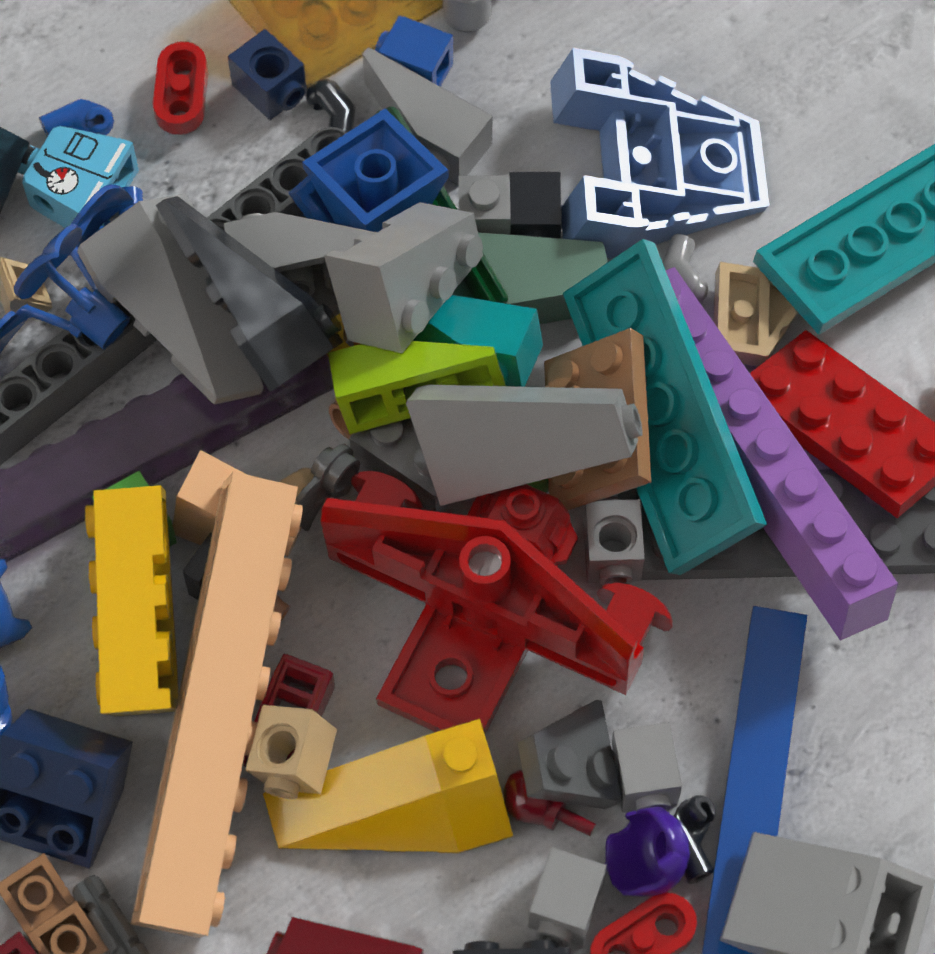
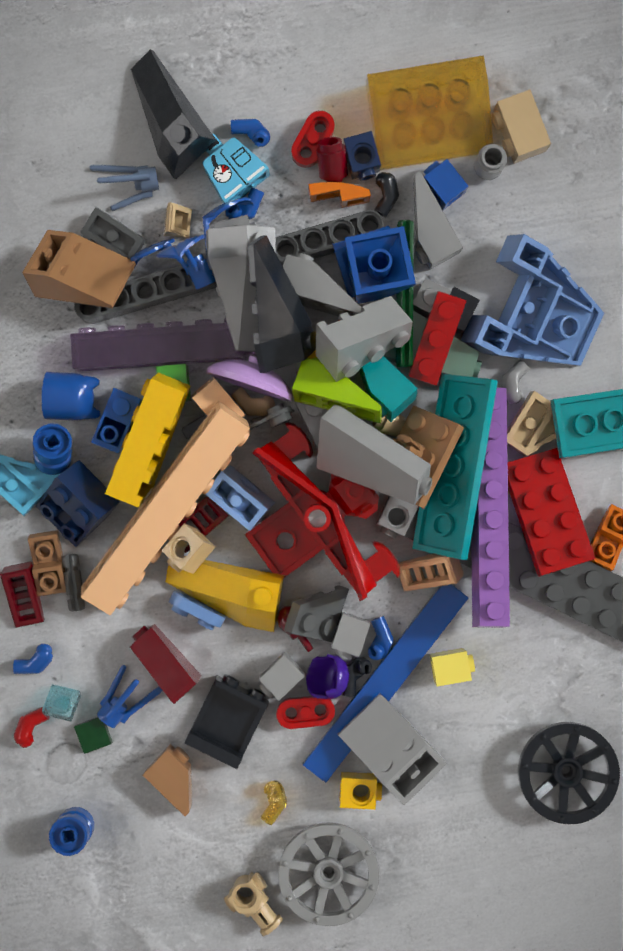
camera: 30 degrees right, 25 degrees up
(64, 608) = (116, 420): none -> blue slope
(225, 96) = (332, 159): none -> dark red brick
(264, 433) = (247, 375): none -> lavender dish
(268, 131) = (348, 193): none -> orange slope
(338, 633) = (240, 498): none -> light blue brick
(379, 859) = (186, 605): none -> medium blue plate
(525, 240) = (437, 338): none -> red plate
(706, 755) = (382, 640): none -> blue arm
(751, 569) = (449, 572): none -> light nougat slope
(845, 735) = (451, 666): none -> light yellow brick

